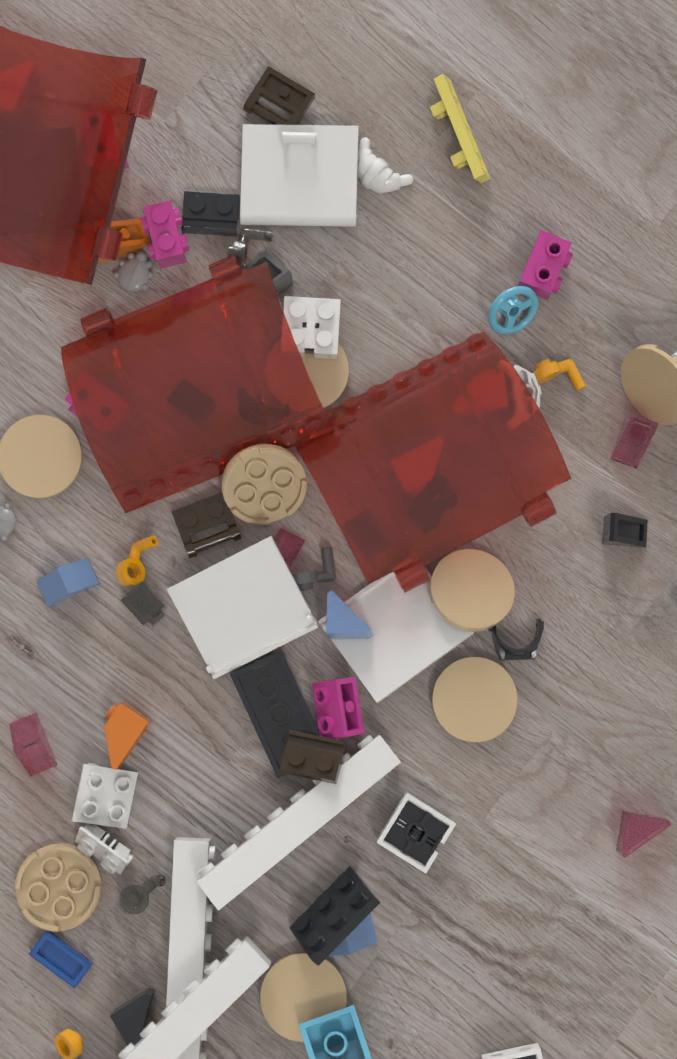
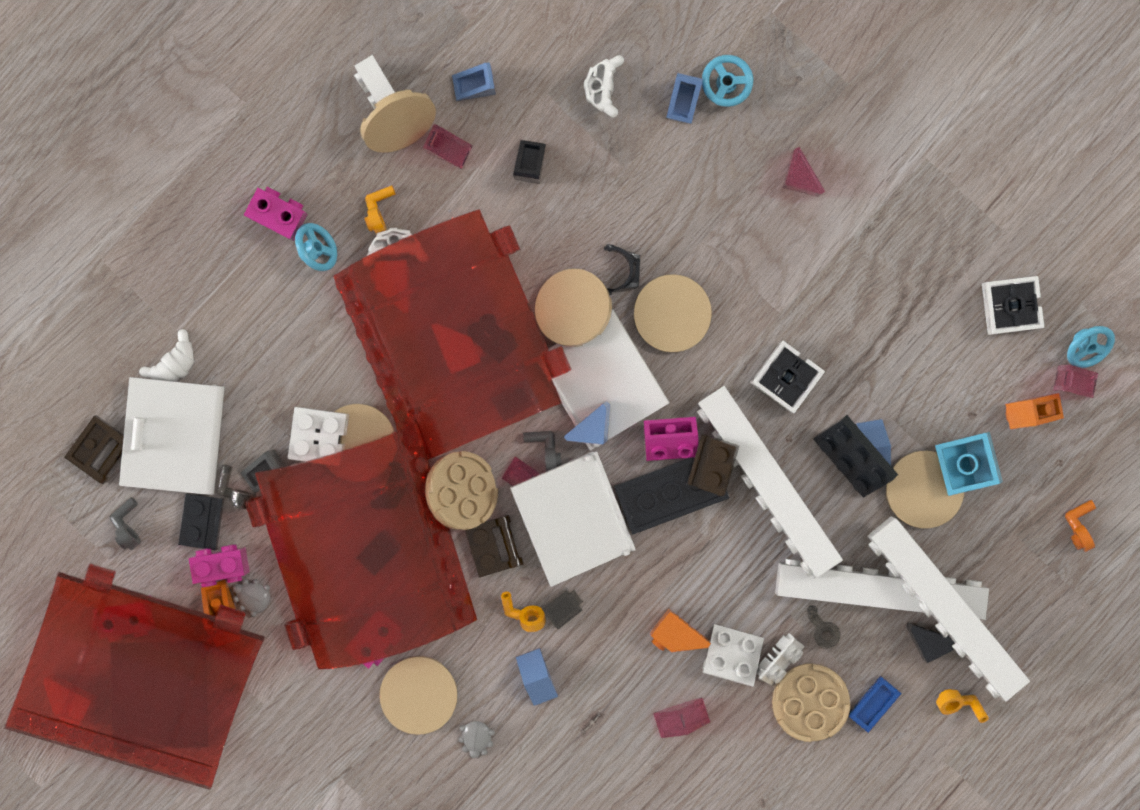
camera: 85 degrees left, 5 degrees up
(190, 135) = (125, 534): none -> dark grey plate
(451, 107) = (161, 273): light yellow hinge -> none

